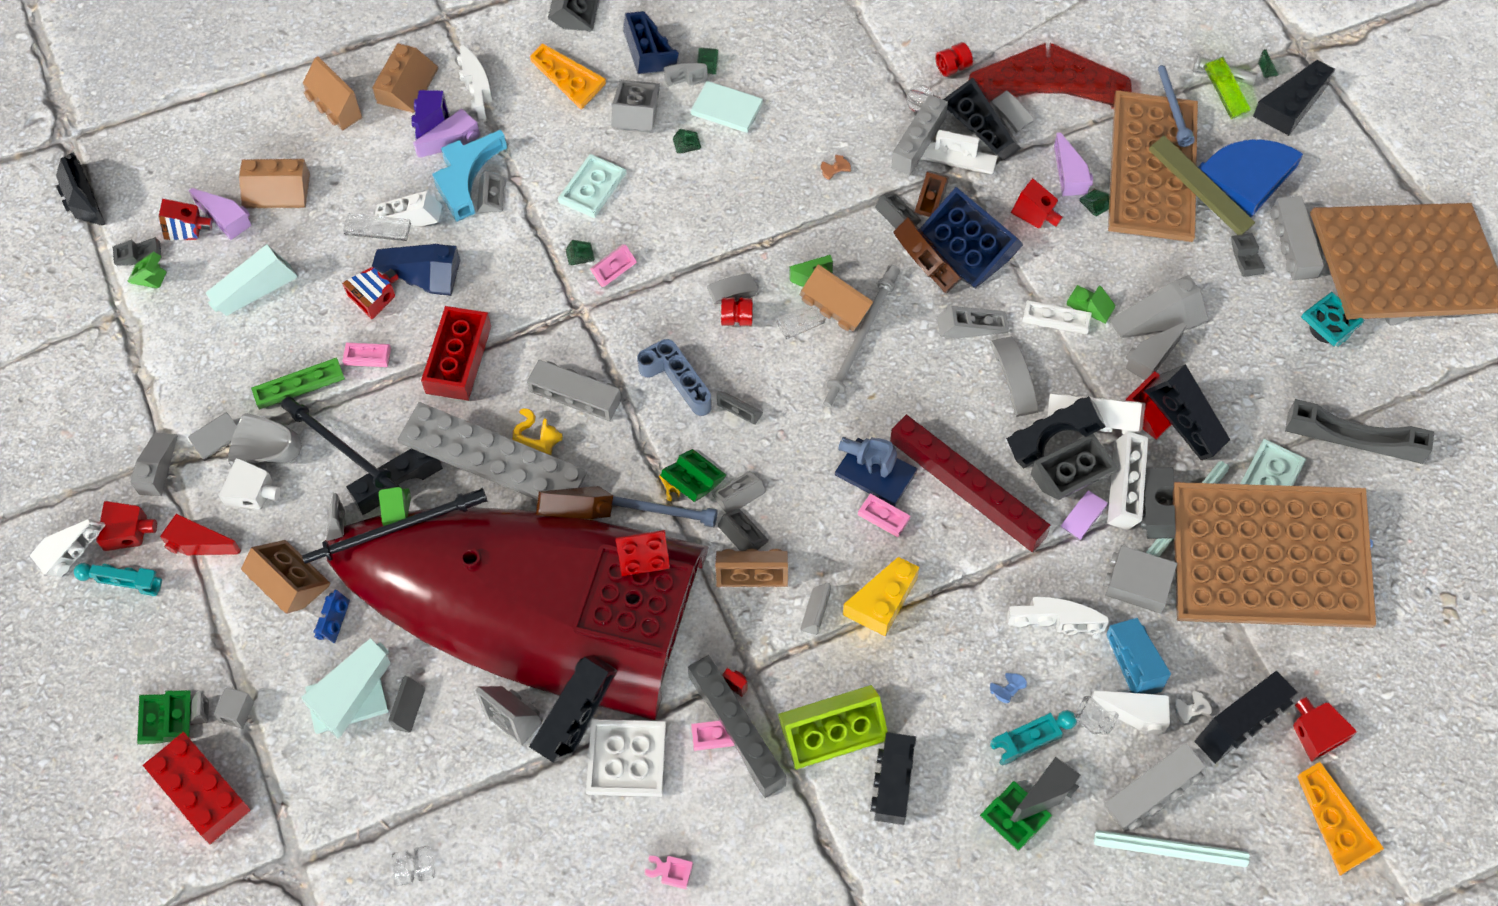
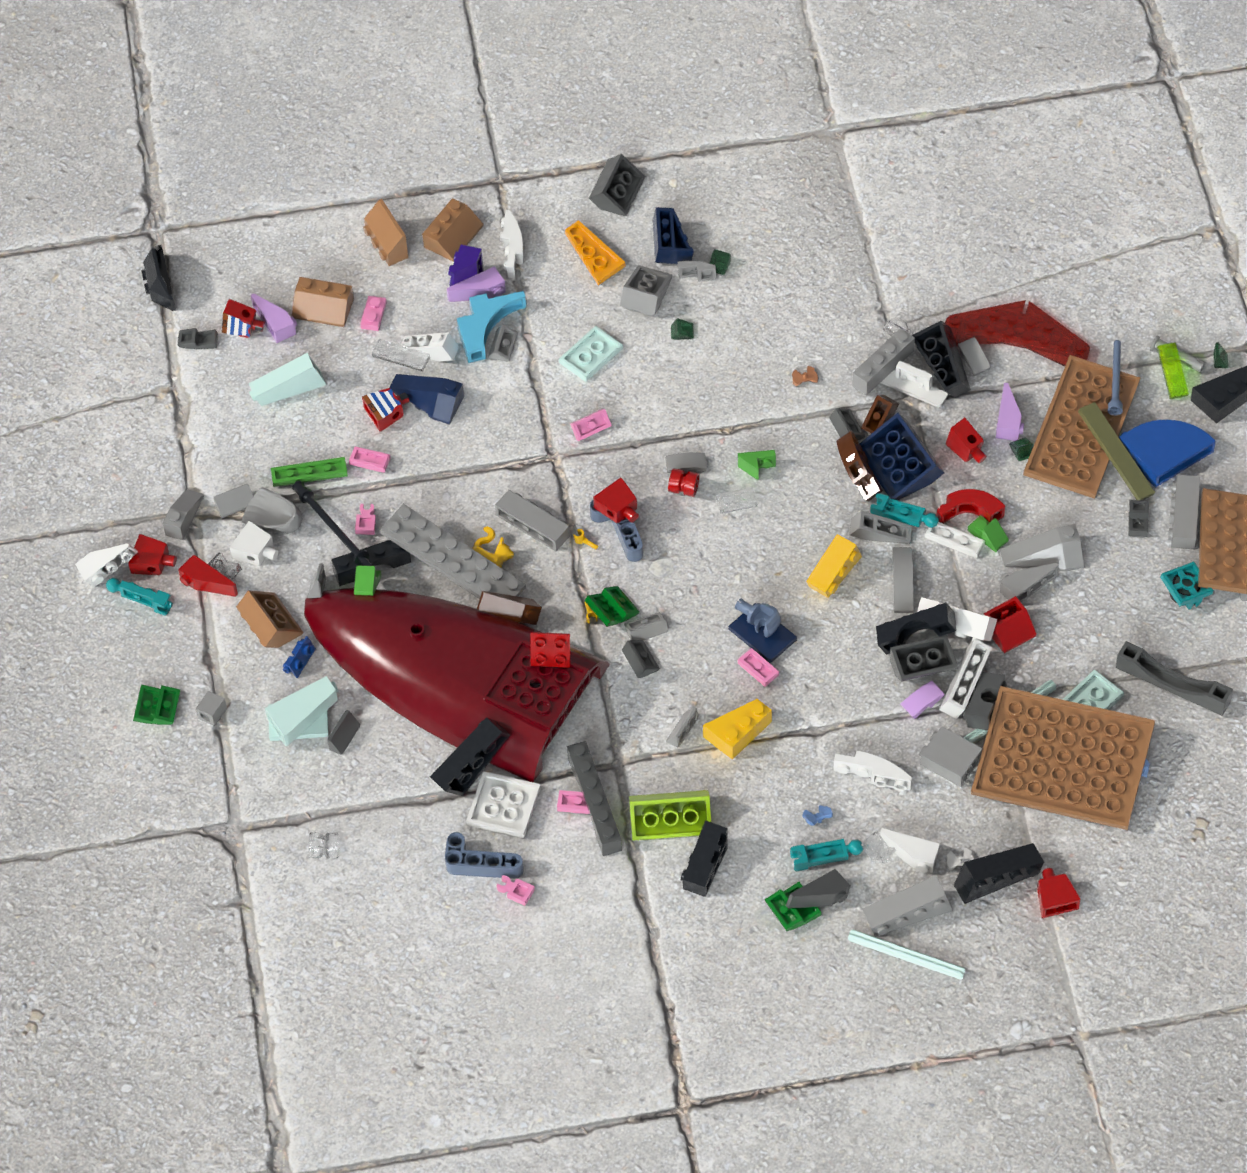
camera: 15 degrees right, 5 degrees down
(148, 272) = (204, 357): bright green slope -> none
(196, 788) = (173, 759): red brick -> none
(199, 709) = (184, 704): light grey slope -> none
(218, 521) = (227, 568): none -> clear bracket
(335, 185) = (373, 313): none -> bright pink plate
(378, 430) = (365, 521): none -> bright pink plate
(456, 353) = (443, 471): red brick -> none
(461, 503) = (419, 588): black bar -> none
(509, 712) = (419, 751): light grey slope -> none
(579, 252) = (565, 408): clear green slope -> none
(621, 838) = (512, 861): none -> sand blue beam
(636, 400) = (582, 539): none -> yellow hand
(670, 350) = (617, 502): none -> red torso
(707, 516) = (615, 641): sand blue piece -> none
(726, 106) = (725, 306): light aqua tile -> none
(736, 681) = (602, 767): red plate -> none
(738, 407) = (664, 560): dark grey slope -> none
(751, 568) = (638, 686): medium nougat slope -> none
(835, 298) = (766, 487): medium nougat slope -> none
(885, 286) = (816, 485): light grey bar -> none
(936, 376) = (834, 566): none -> yellow wedge
(954, 59) = (941, 296): red wheel -> none
(970, 483) = (835, 655): dark red brick -> none
(992, 298) = (902, 512): none -> teal plate
(1065, 271) = (973, 502): none -> red arch
(1138, 657) = (926, 812): dark azure wedge -> none
(1188, 411) = (1031, 633): black wedge -> none
(1340, 824) = (1045, 964): light orange wing -> none

